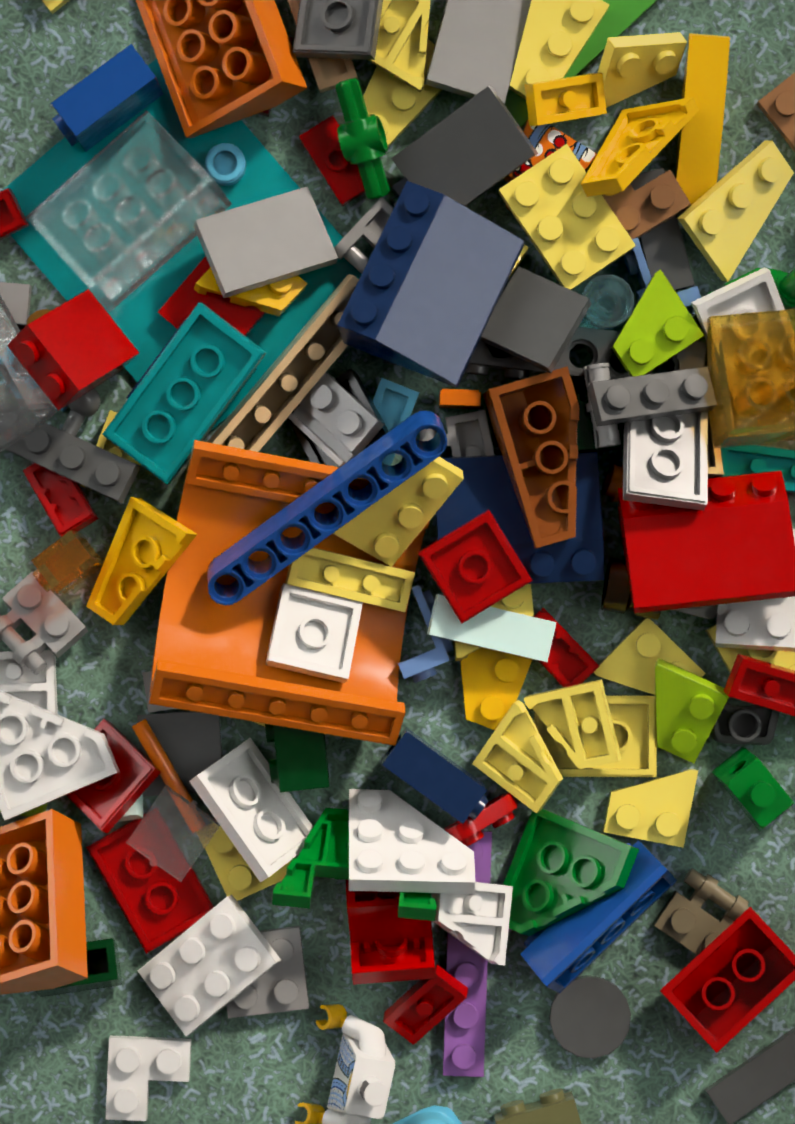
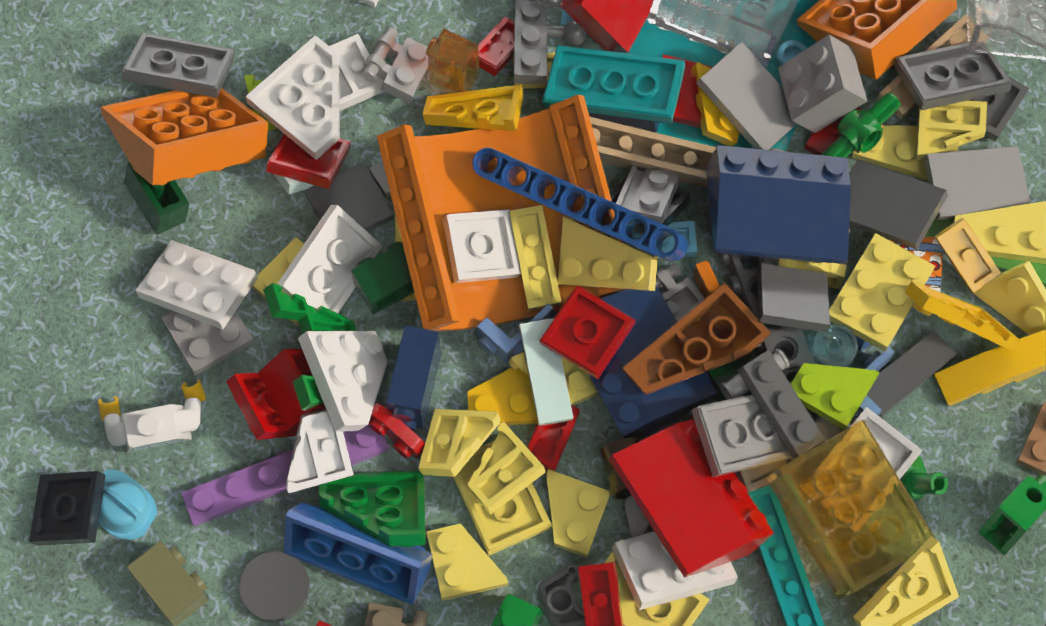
camera: 65 degrees right, 20 degrees down
(134, 1063) = (95, 268): white plate -> none
(148, 896) = (246, 221): red tile -> none
(159, 758) = (328, 198): orange bar -> none
(173, 833) = (286, 218): clear piece -> none
(290, 154) = (822, 84): none -> light grey brick
(425, 1005) = (232, 451): red plate -> none
(649, 205) = (920, 352): medium nougat plate -> none
(685, 710) = (551, 548): lime wing -> none
(736, 207) = (956, 419): light yellow wing -> none

